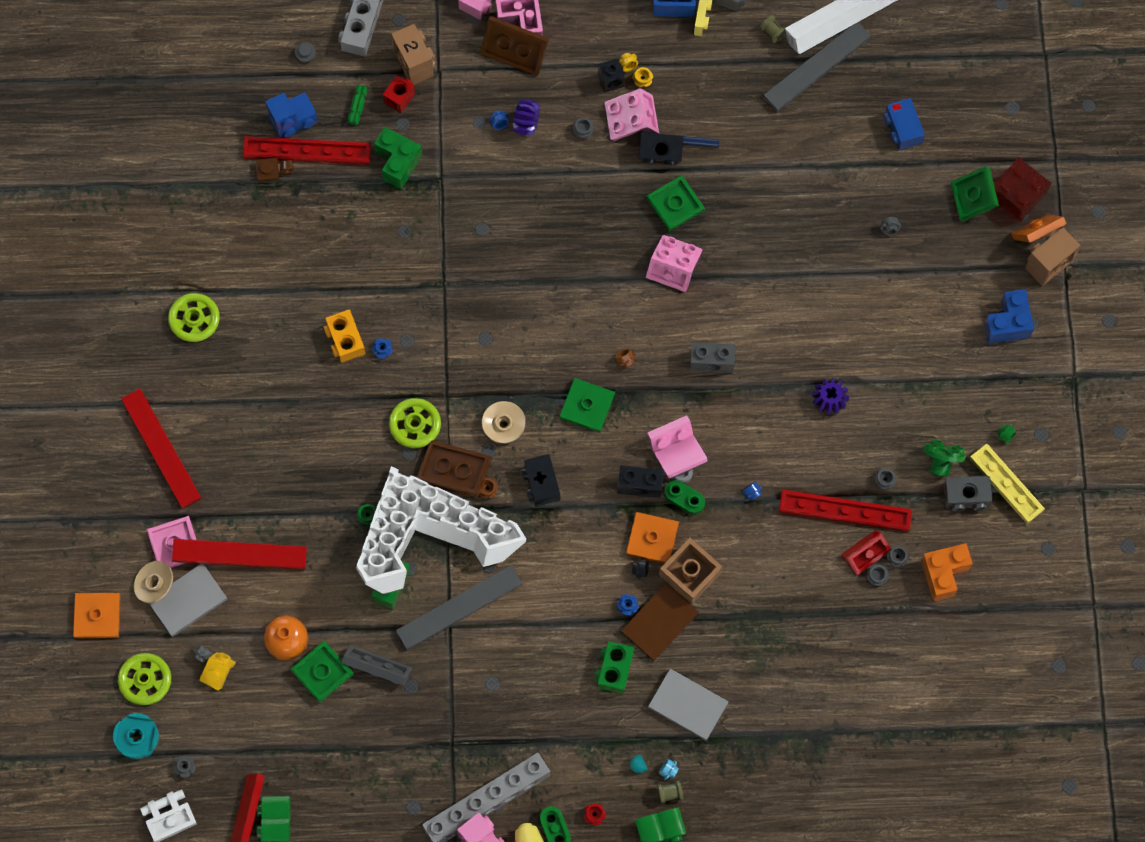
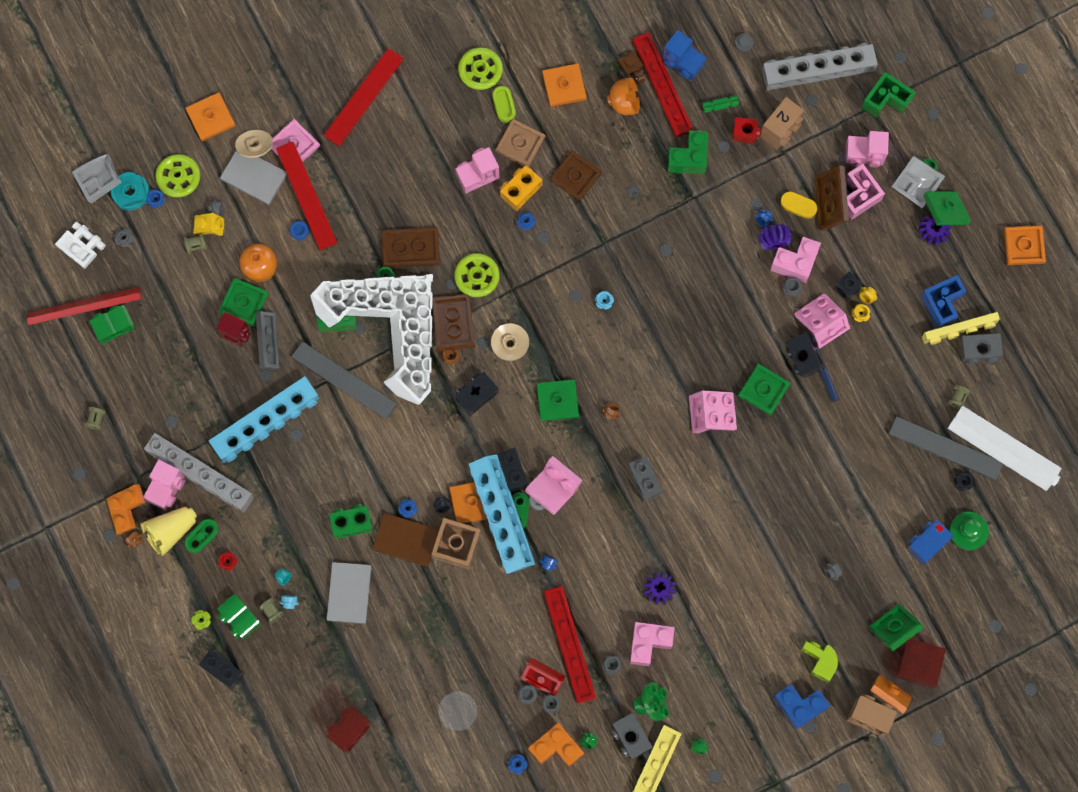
camera: 65 degrees right, 5 degrees up
(102, 764) = (97, 177): none -> light grey plate
(158, 707) = (155, 194): none -> blue plate
(231, 693) = (195, 243): none -> olive bush
(244, 312) = (504, 104): none -> lime tile
(256, 244) = (564, 85): none -> orange plate
(272, 580) = (299, 230): none -> blue tile
(295, 316) = (520, 143): none -> medium nougat tile
(302, 191) = (623, 97): none -> orange cylinder
(306, 365) = (479, 171): none -> bright pink brick
(350, 476) = (410, 247): none -> reddish brown tile
(350, 692) = (233, 329): none -> dark red brick
(359, 278) = (575, 176): none -> reddish brown tile
(449, 651) = (253, 419): none -> medium azure brick
(500, 308) = (604, 295): none -> medium azure plate
(502, 82) = (798, 205): none -> yellow tile
(563, 109) = (798, 264): none -> bright pink brick
(673, 503) = (509, 518): none -> medium azure brick
(835, 766) = (348, 729): none -> clear red brick
(858, 60) = (968, 481): none -> black plate
(862, 652) = (457, 711): none -> clear tile
(877, 435) = (646, 637): none -> bright pink brick
(909, 82) = (969, 531): none -> green plate
(944, 623) = (512, 764): none -> blue plate
(952, 536) = (588, 740): none -> green plate
(978, 275) = (827, 660): none -> lime brick

